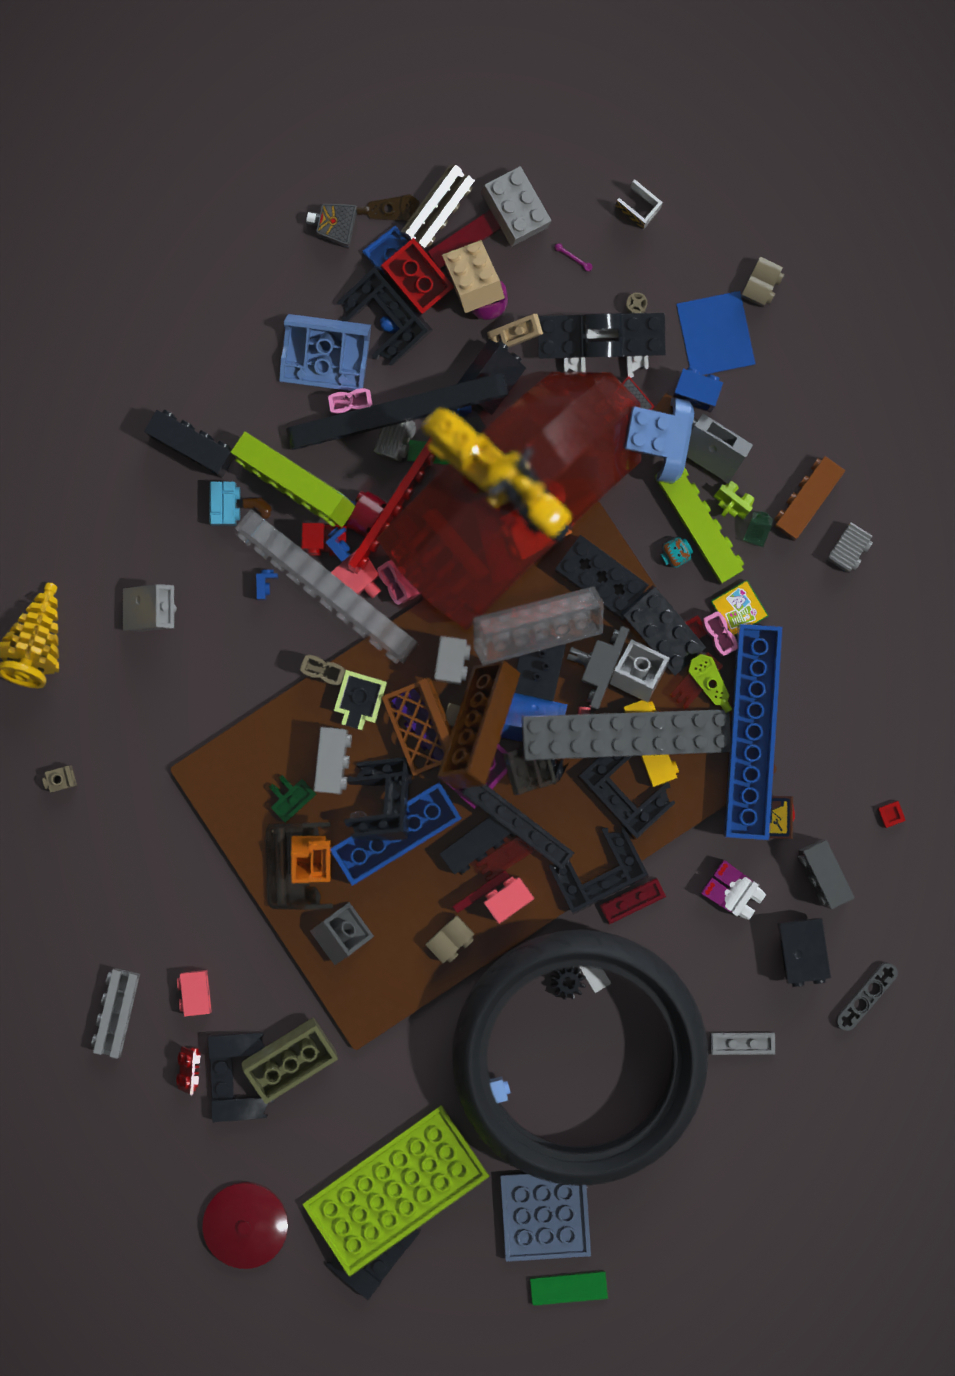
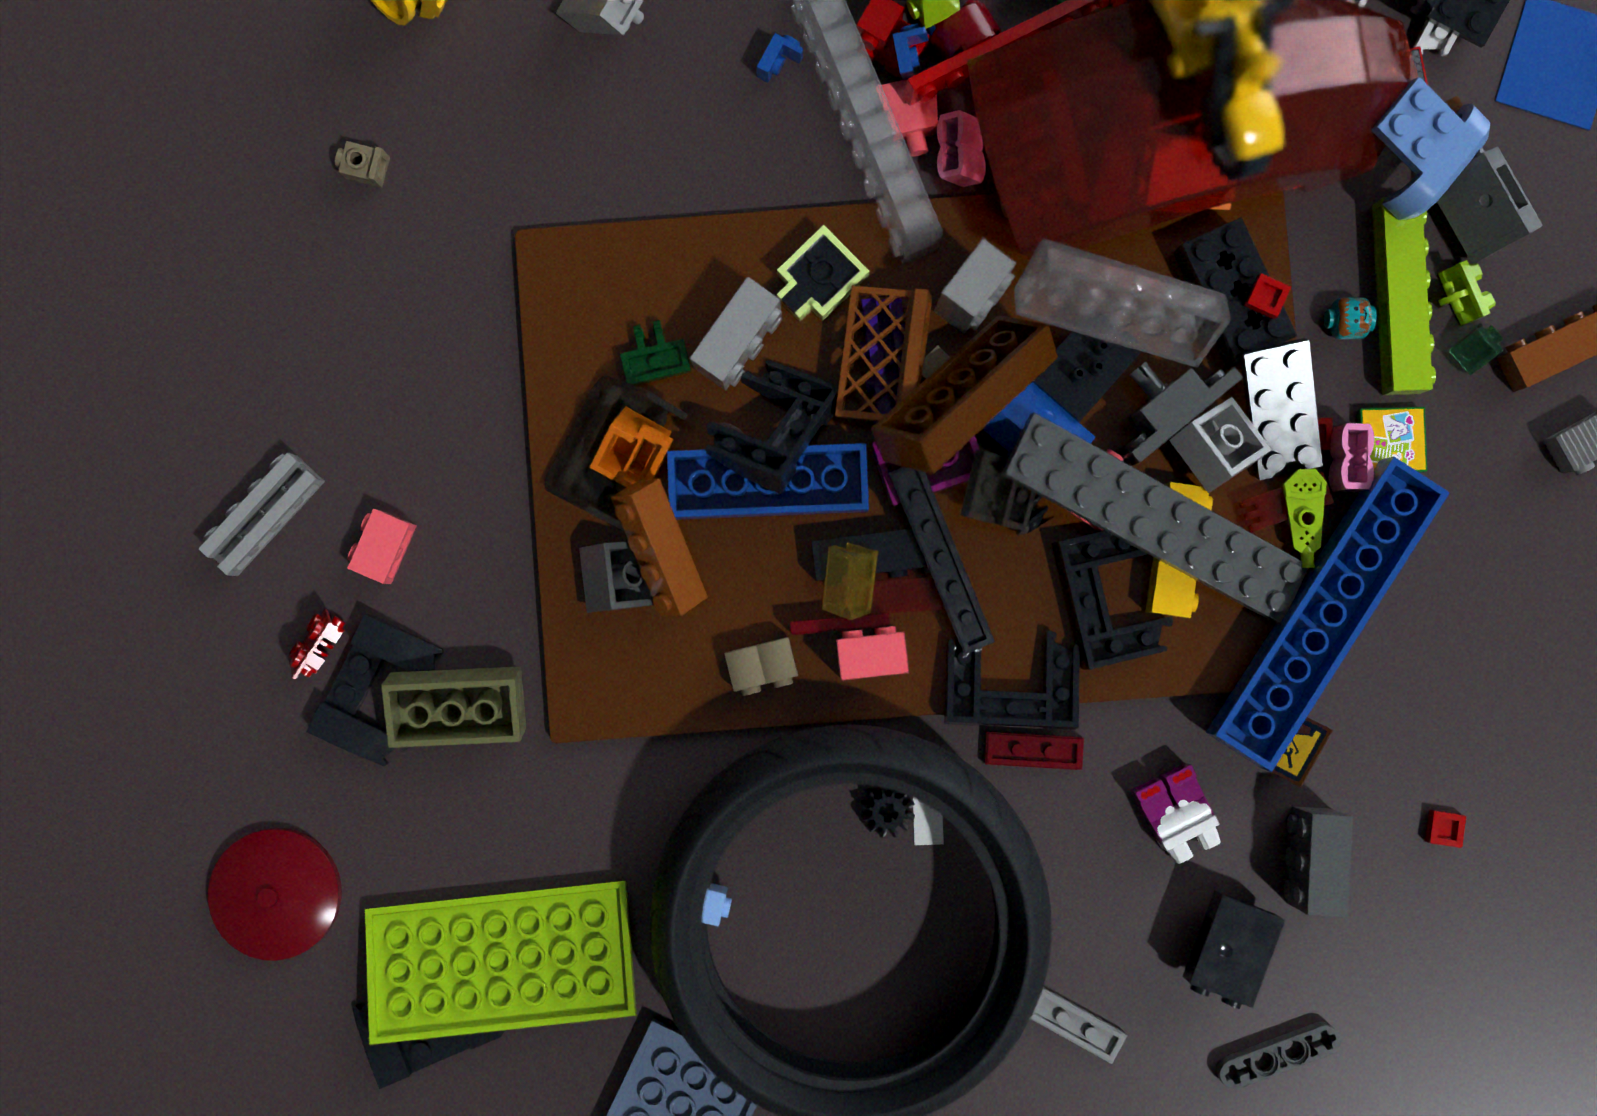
camera: 25 degrees right, 0 degrees up
(317, 668) = (786, 204): dark tan brick -> none
(356, 906) = (659, 547): none -> dark orange brick
(473, 864) = (849, 581): none -> clear yellow hinge
(618, 573) = (1267, 296): none -> red tile
(698, 389) = (1511, 112): blue brick -> none

